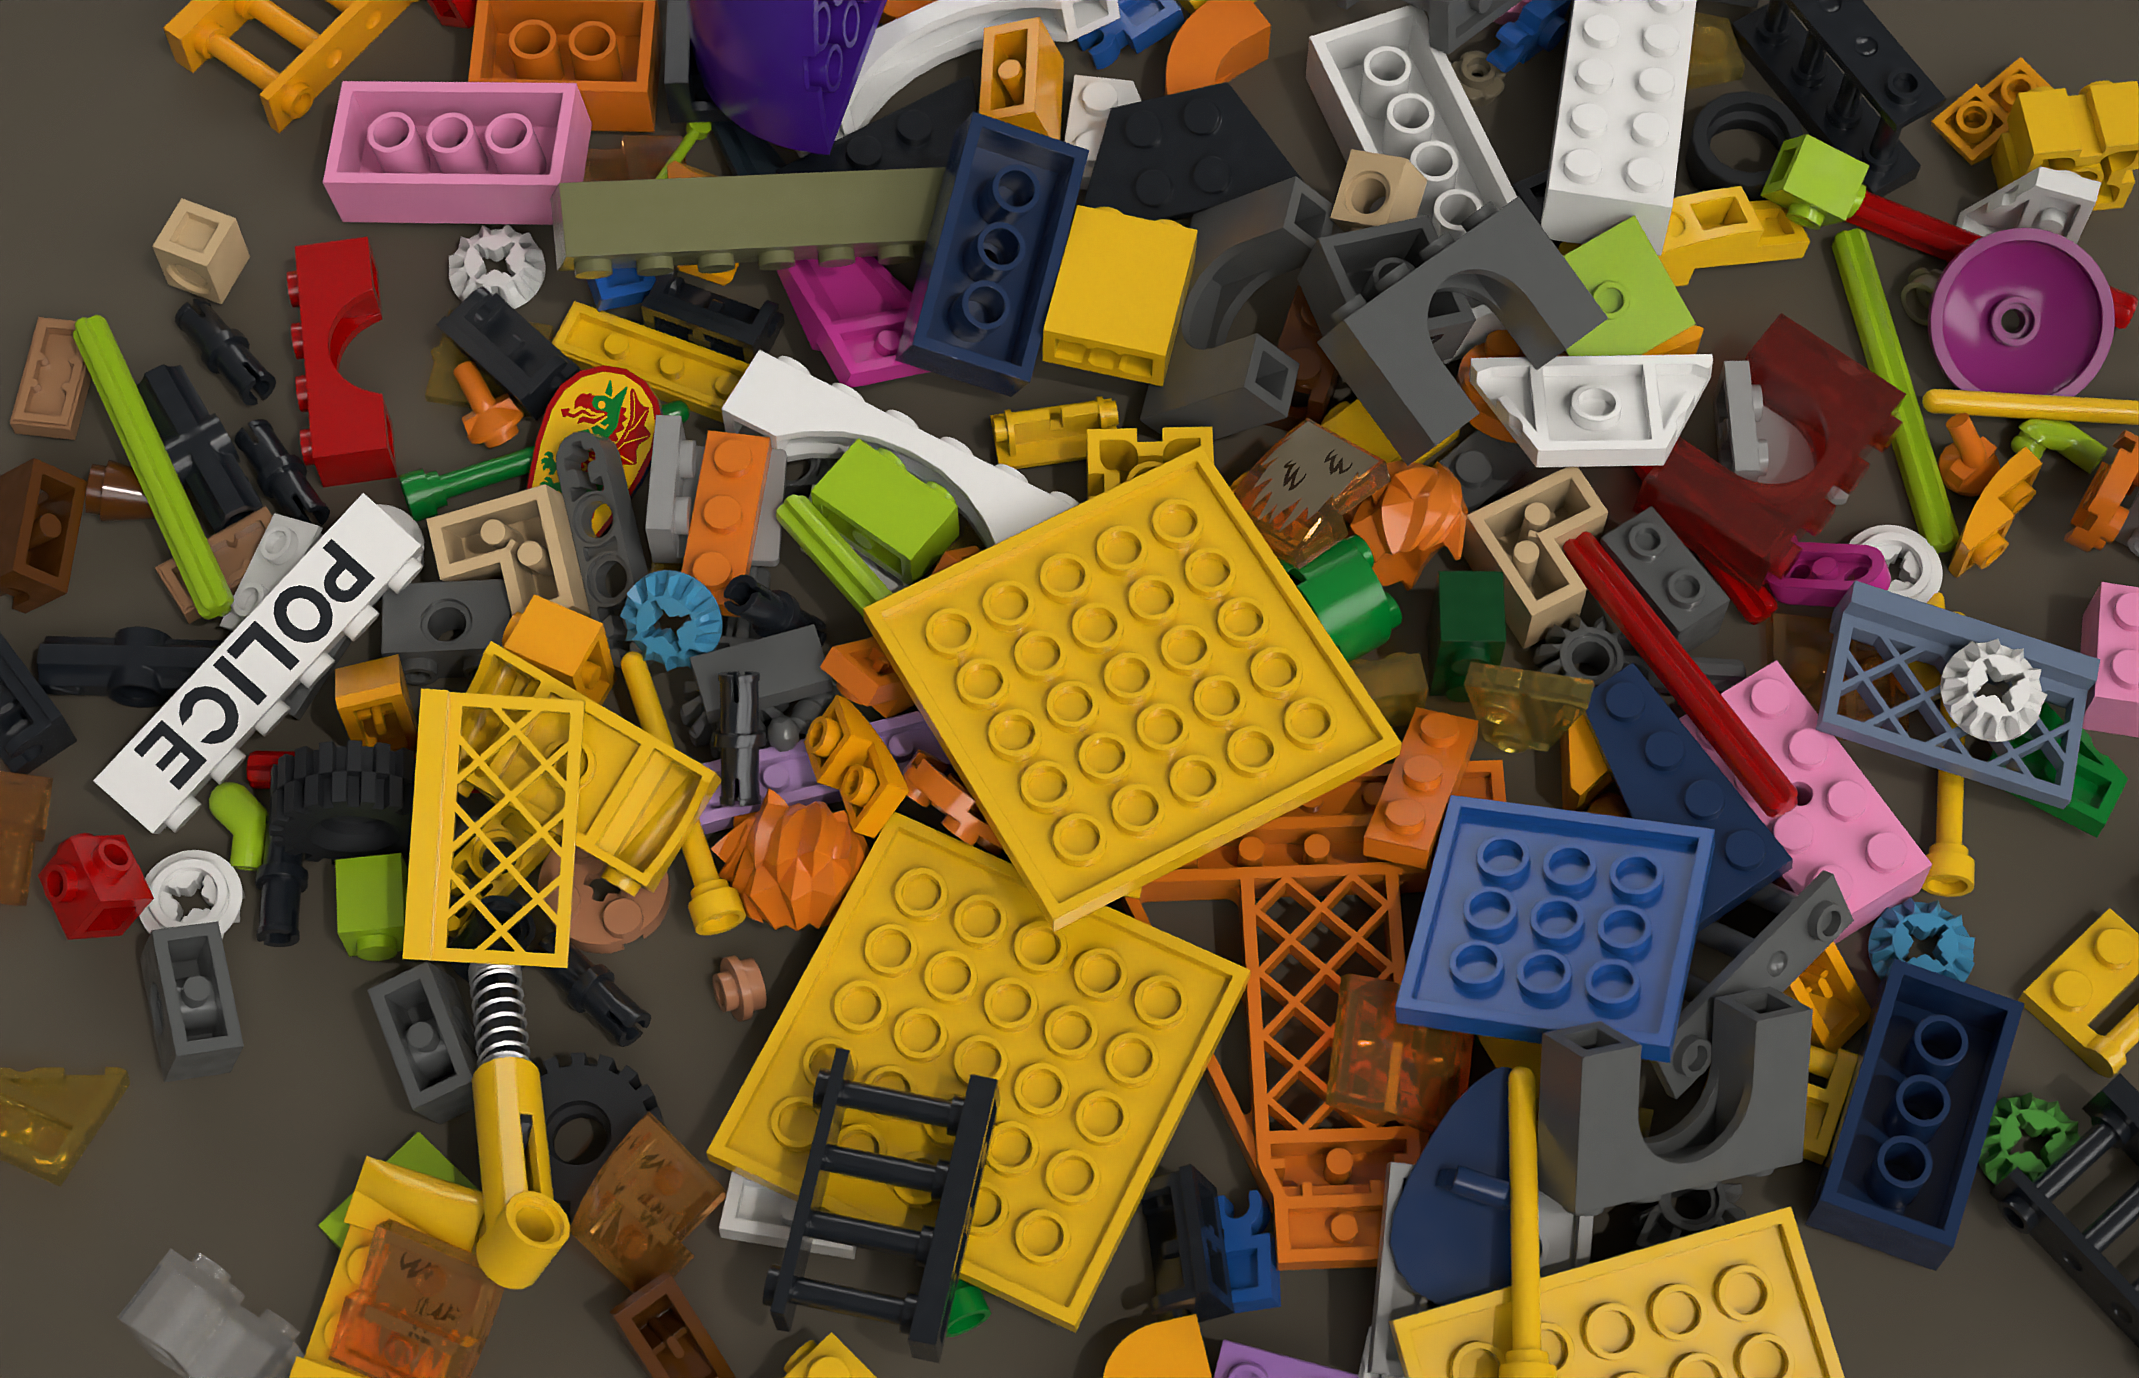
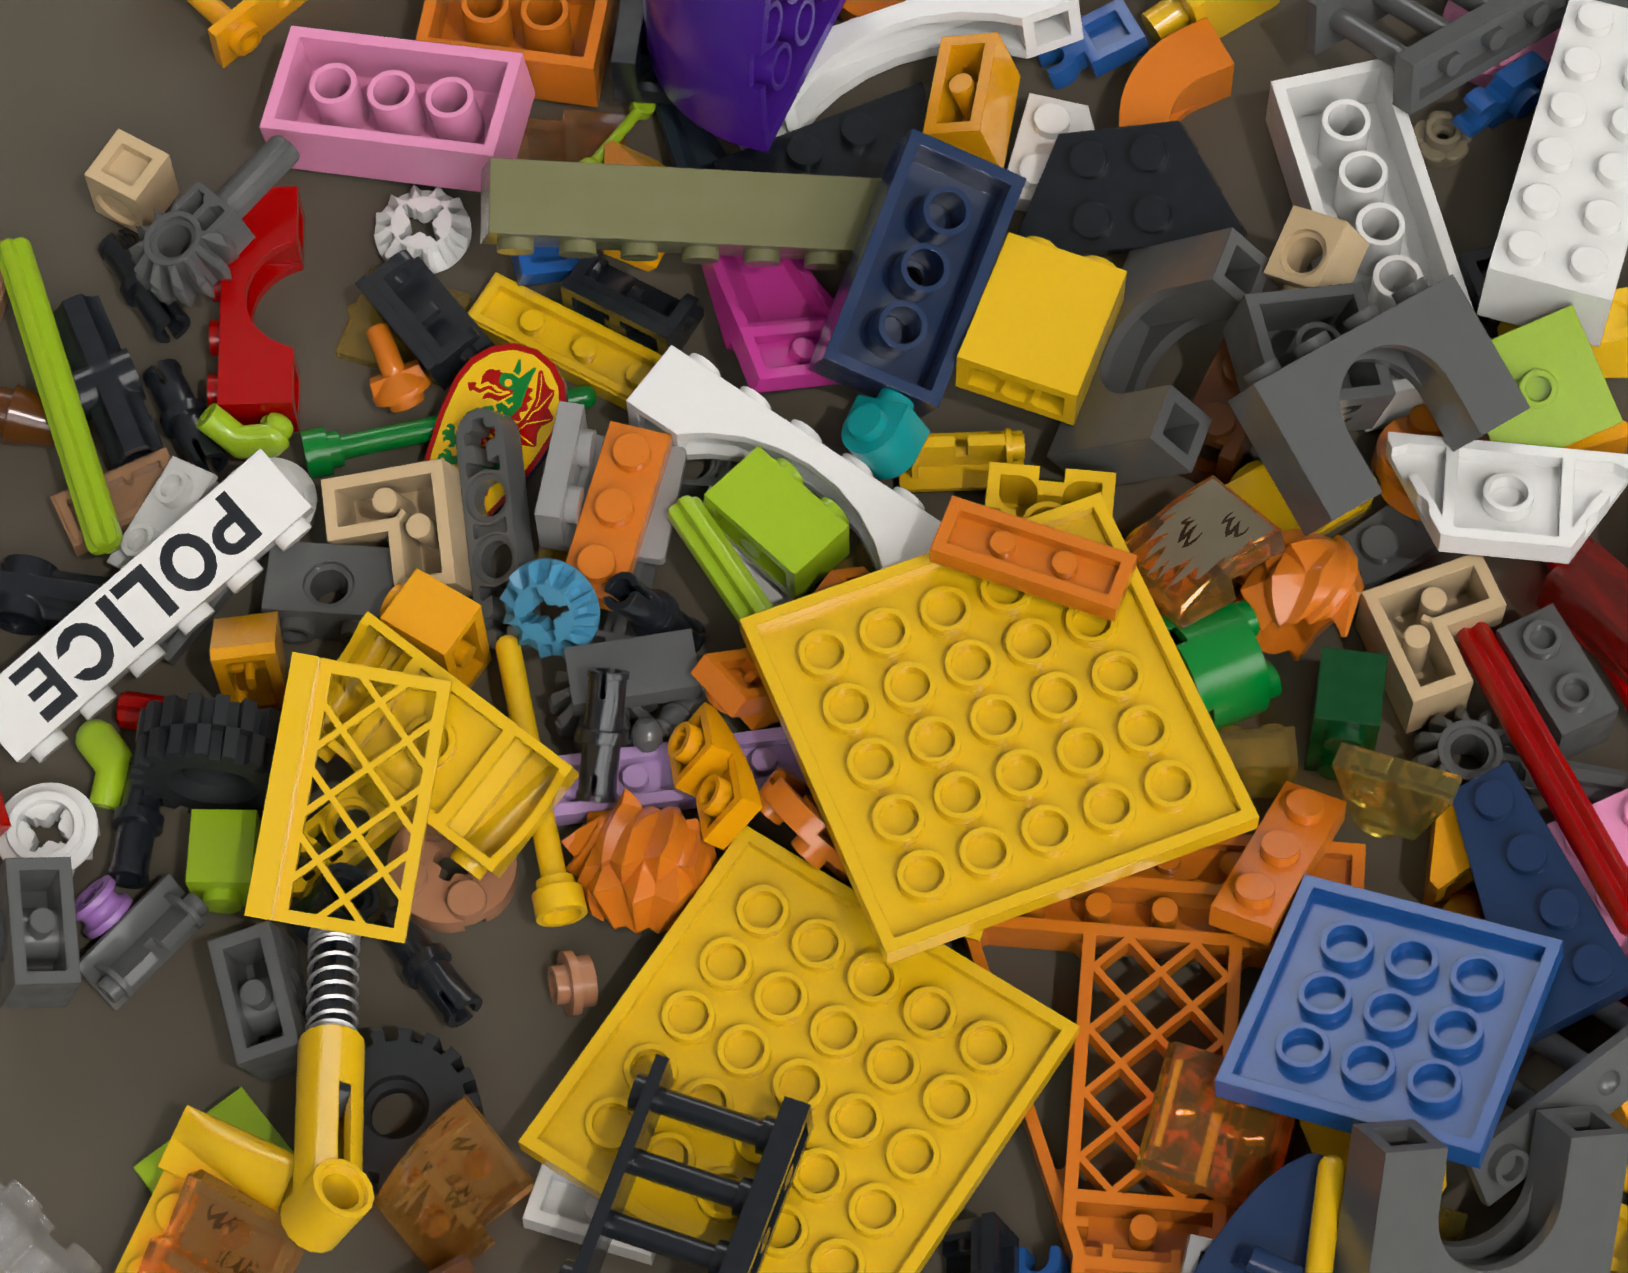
camera: 10 degrees right, 0 degrees up
(254, 968) = (101, 906): none -> medium lavender bush
(280, 289) = (205, 231): none -> dark grey gear
(300, 997) = (142, 941): none -> dark grey hinge
(344, 490) = (245, 440): none -> lime arm
(980, 413) = (884, 433): none -> teal plate
(1146, 516) = (1033, 558): none -> orange plate

